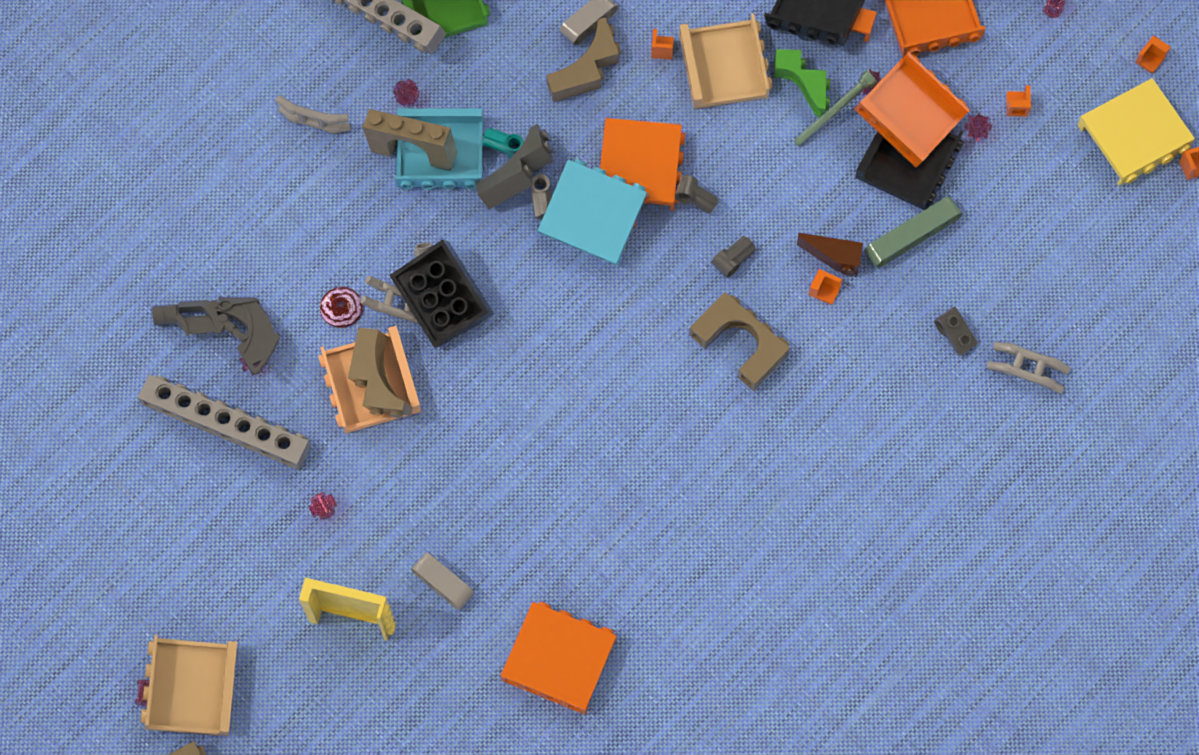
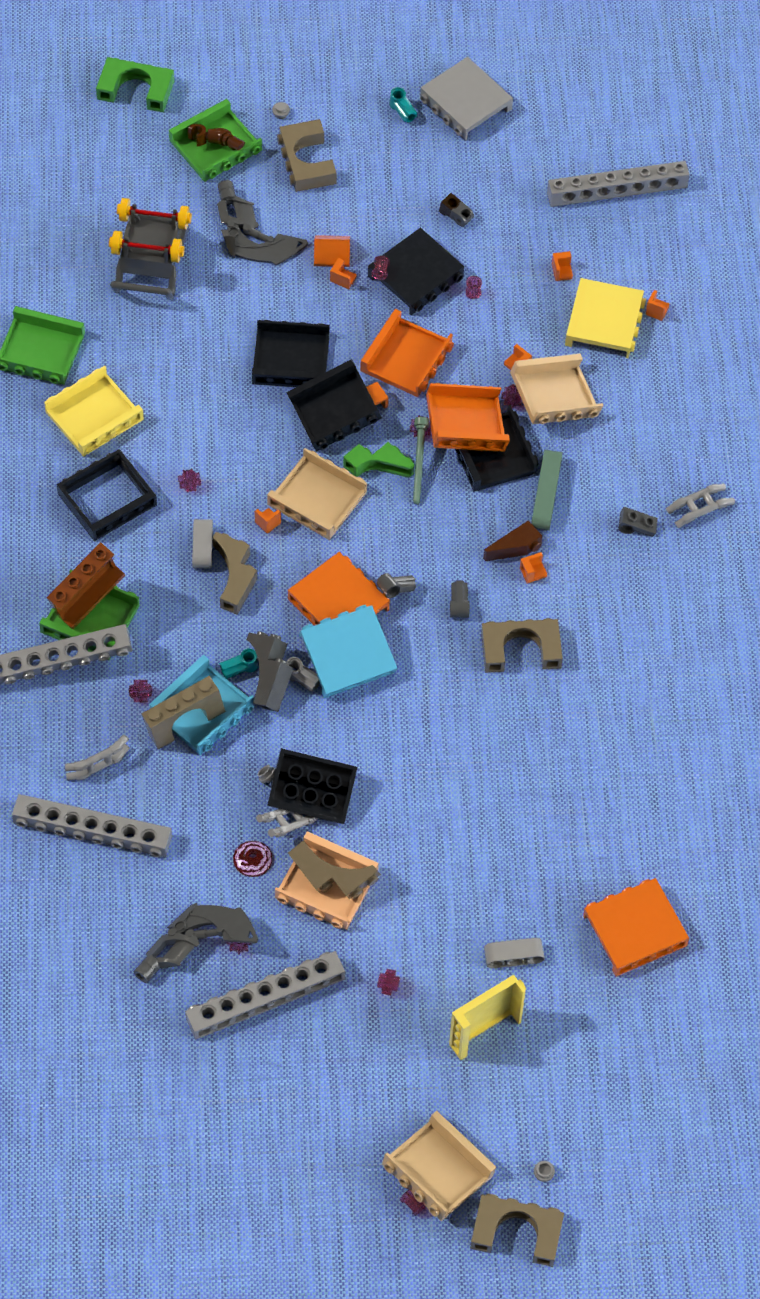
camera: 50 degrees left, 10 degrees down
(219, 102) = (65, 813): none -> light grey brick
(1017, 154) = (554, 389): none -> tan panel

